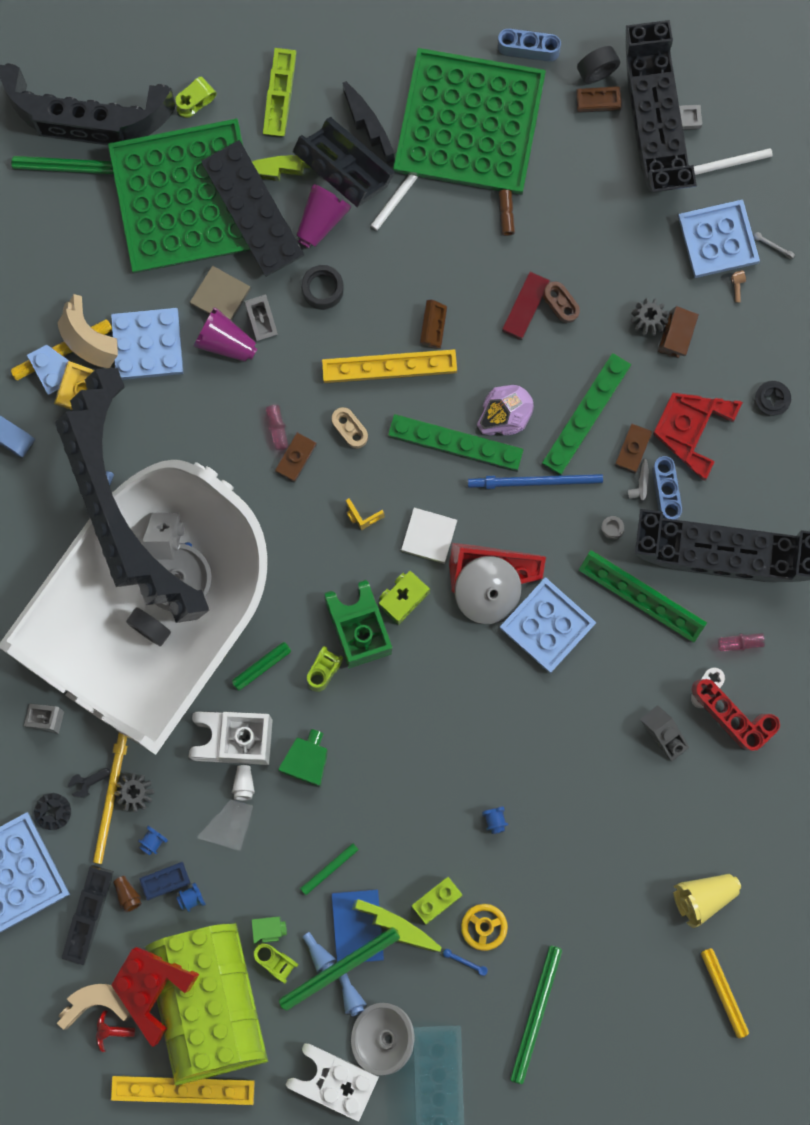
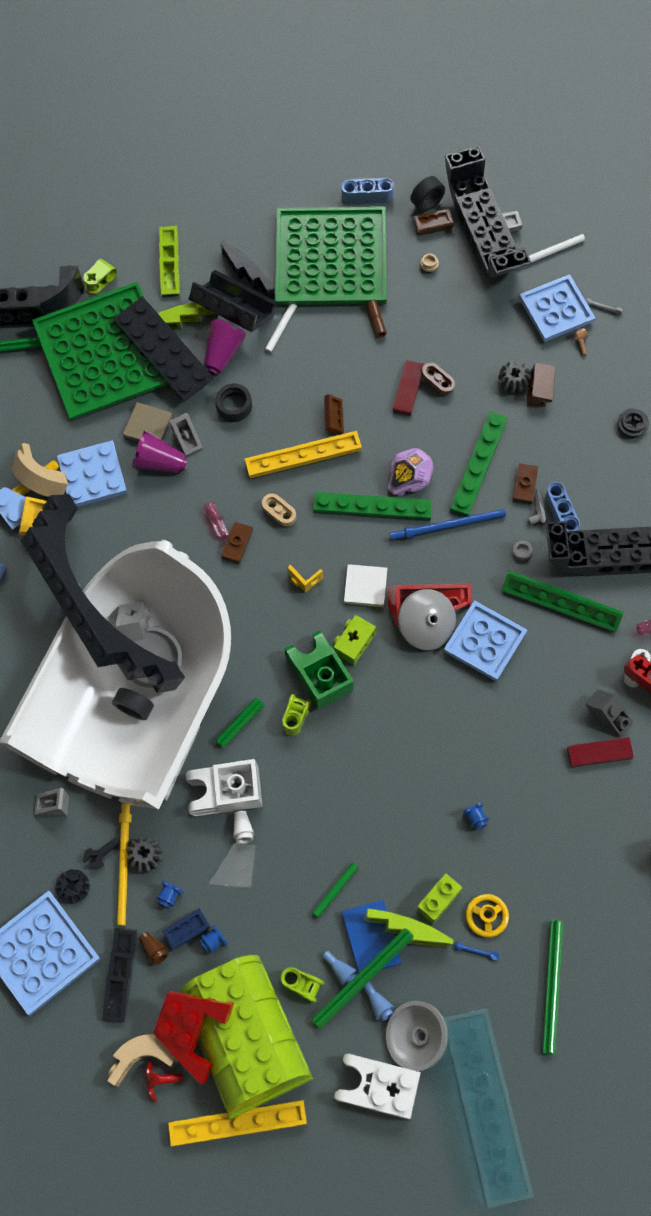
camera: 10 degrees left, 10 degrees down
(268, 929) = (290, 955): bright green window -> none
(306, 759) = (295, 795): green torso -> none
(583, 152) = (429, 262): none -> tan plate
(644, 774) = (600, 752): none -> dark red tile
(684, 423) = (563, 457): red wing -> none

